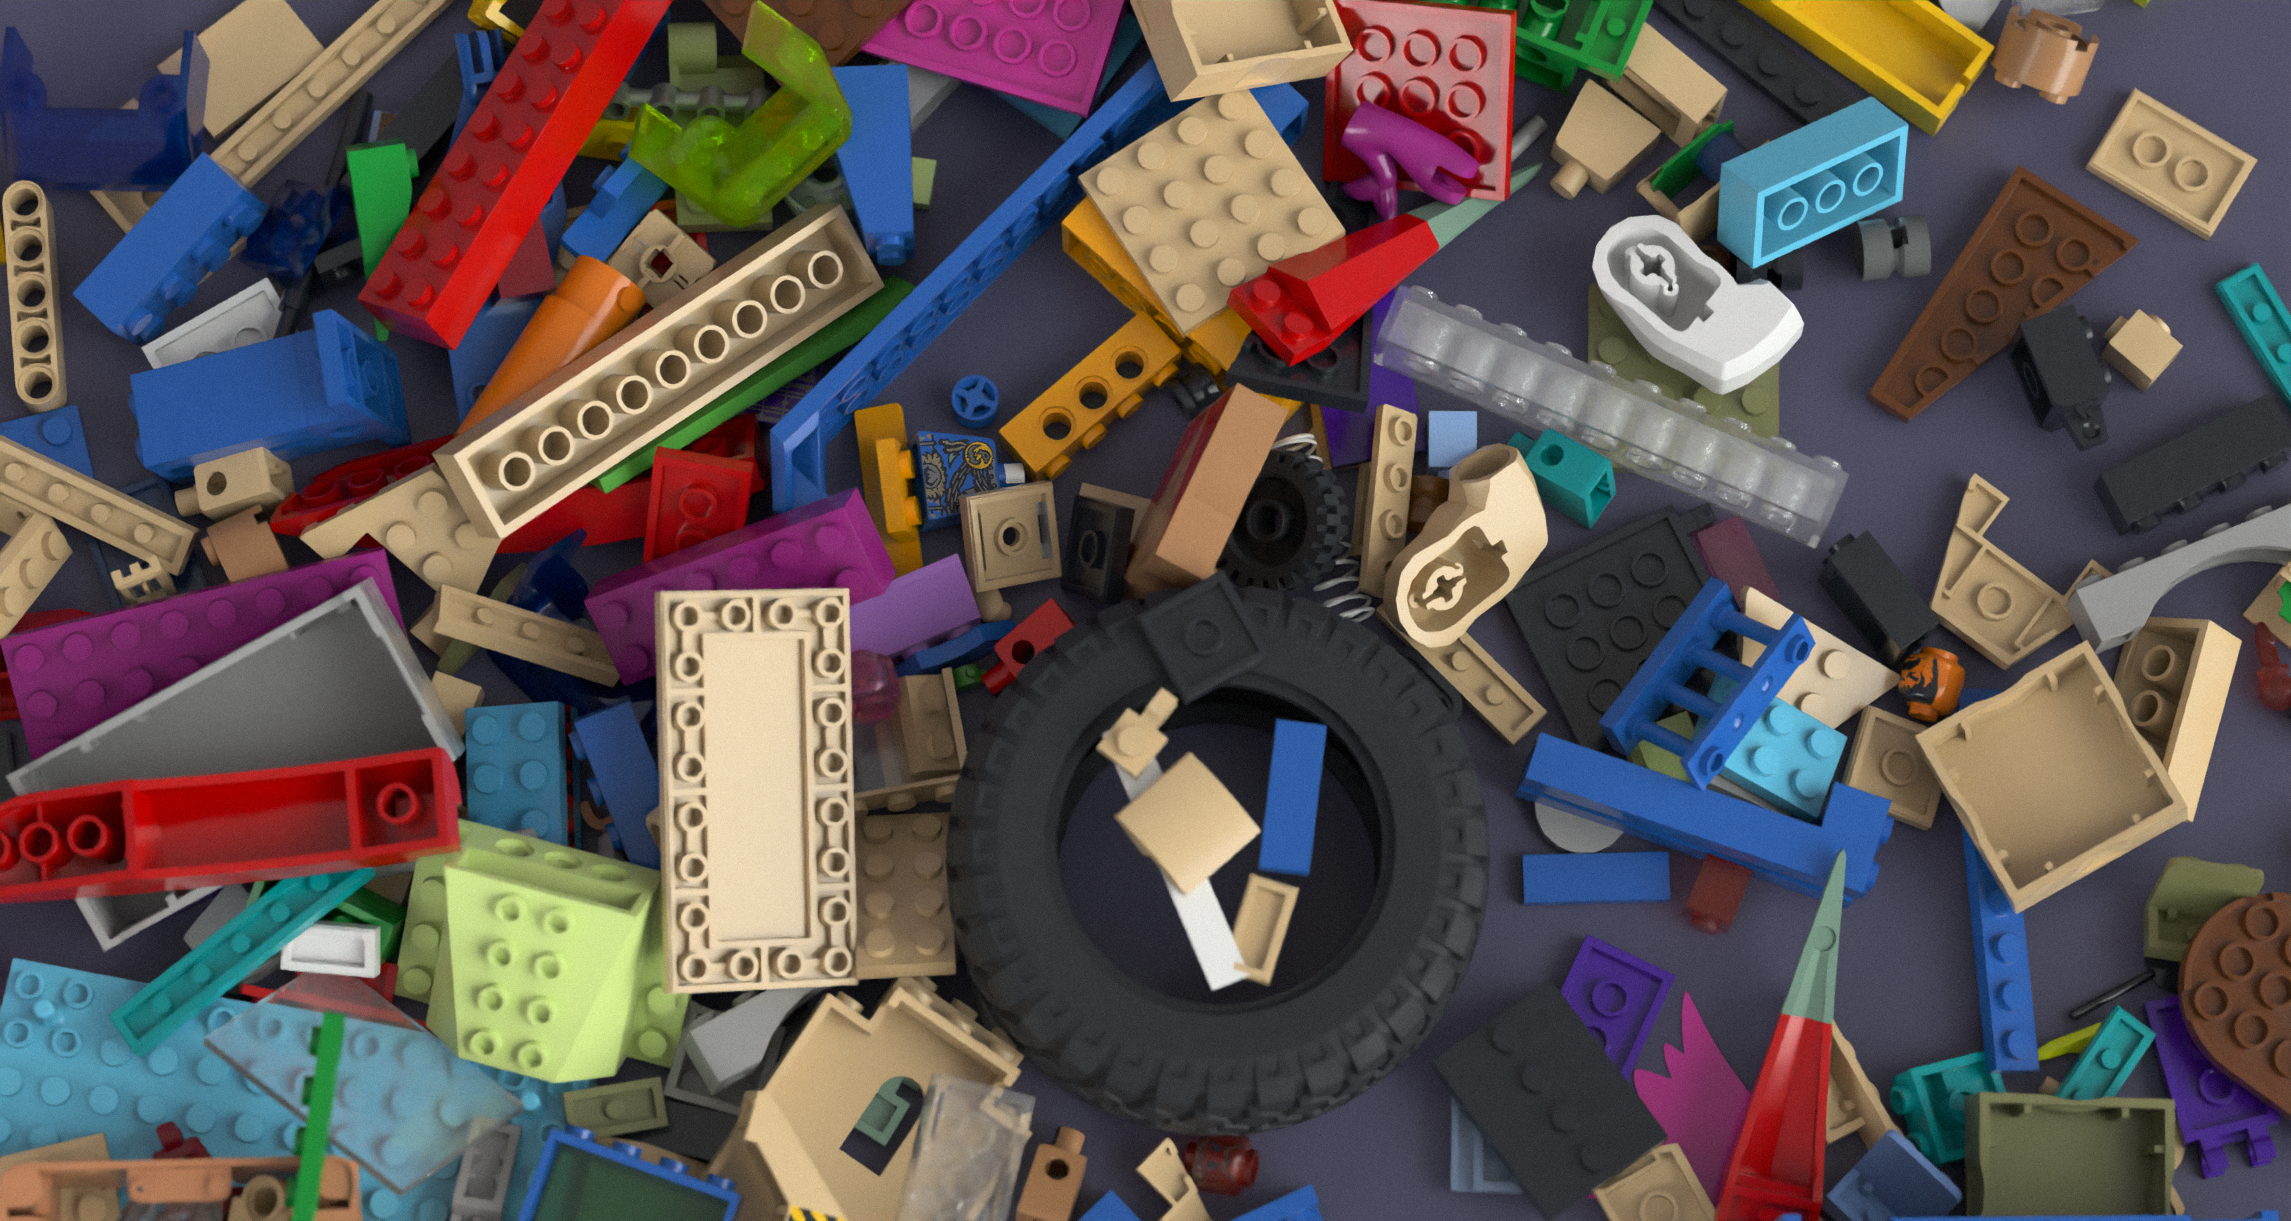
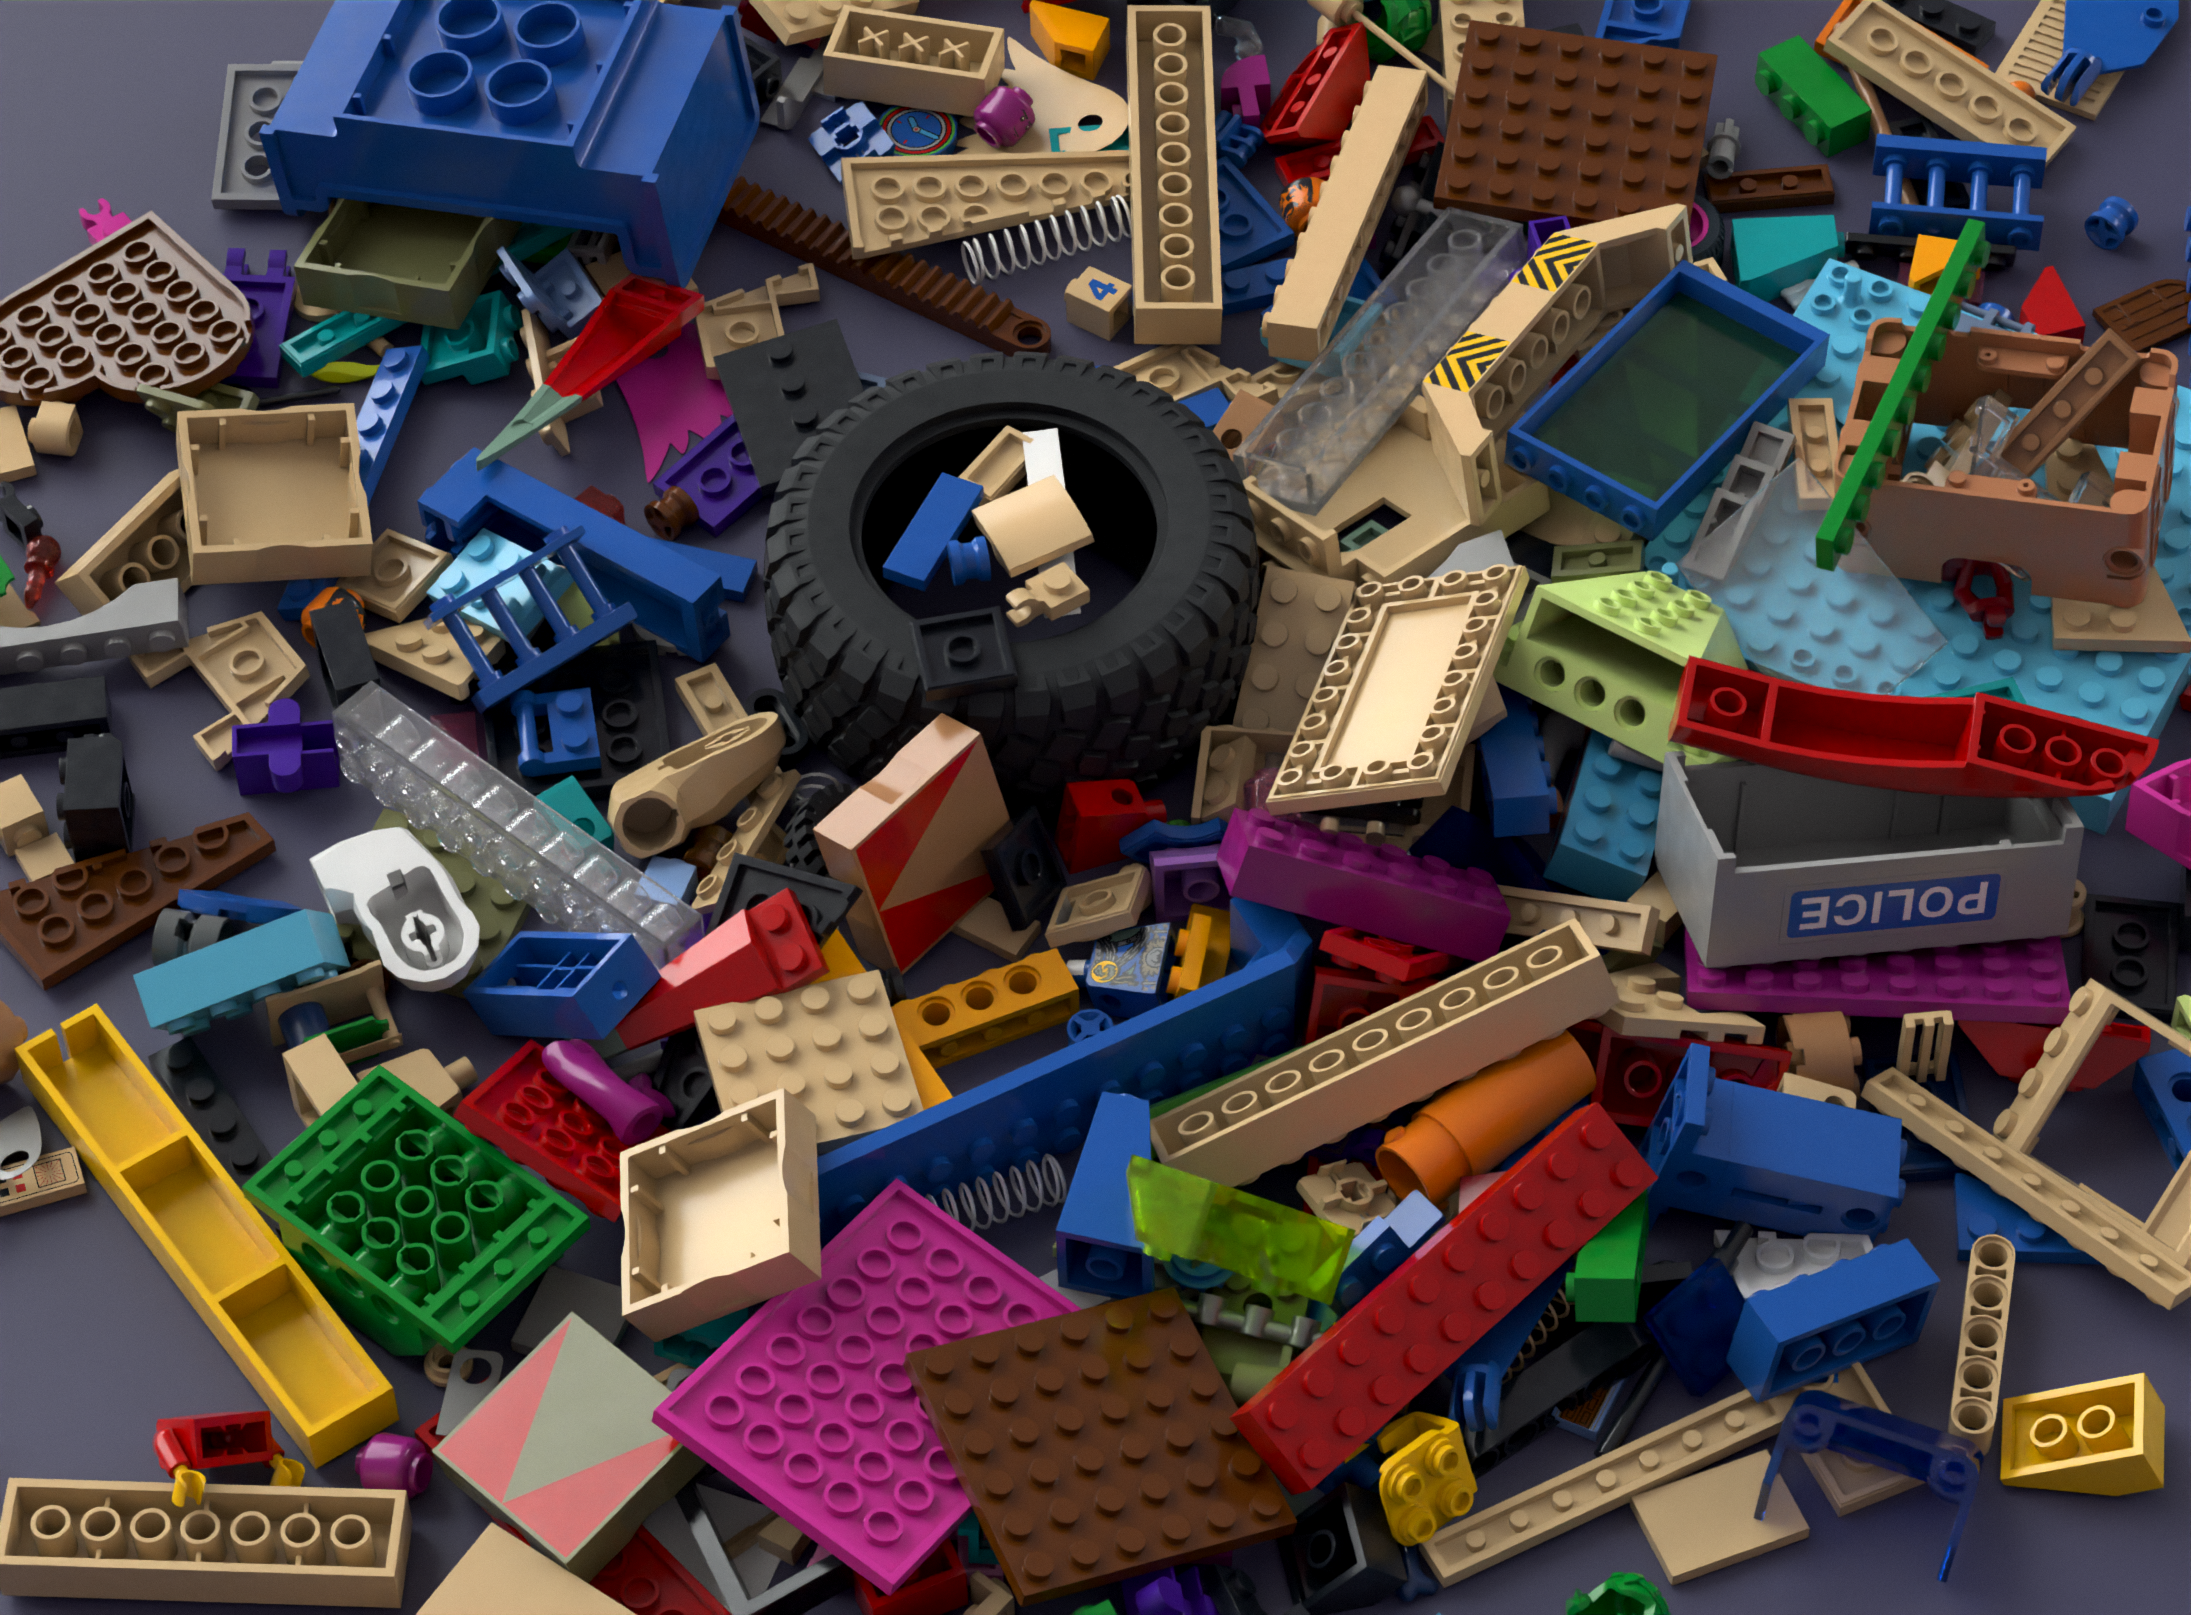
camera: 160 degrees left, 25 degrees down
(954, 216) = (1006, 1204): none -> white piece
(1237, 755) = (969, 560): none -> blue wheel
(1472, 236) = (564, 984): none -> blue brick
(1622, 601) = (570, 726): none -> blue plate
(1638, 933) = (671, 513): none -> reddish brown wheel
(1864, 301) = (234, 906): none -> blue tile
(1901, 491) = (285, 753): none -> dark purple piece
(2097, 310) = (43, 857): none -> tan tile

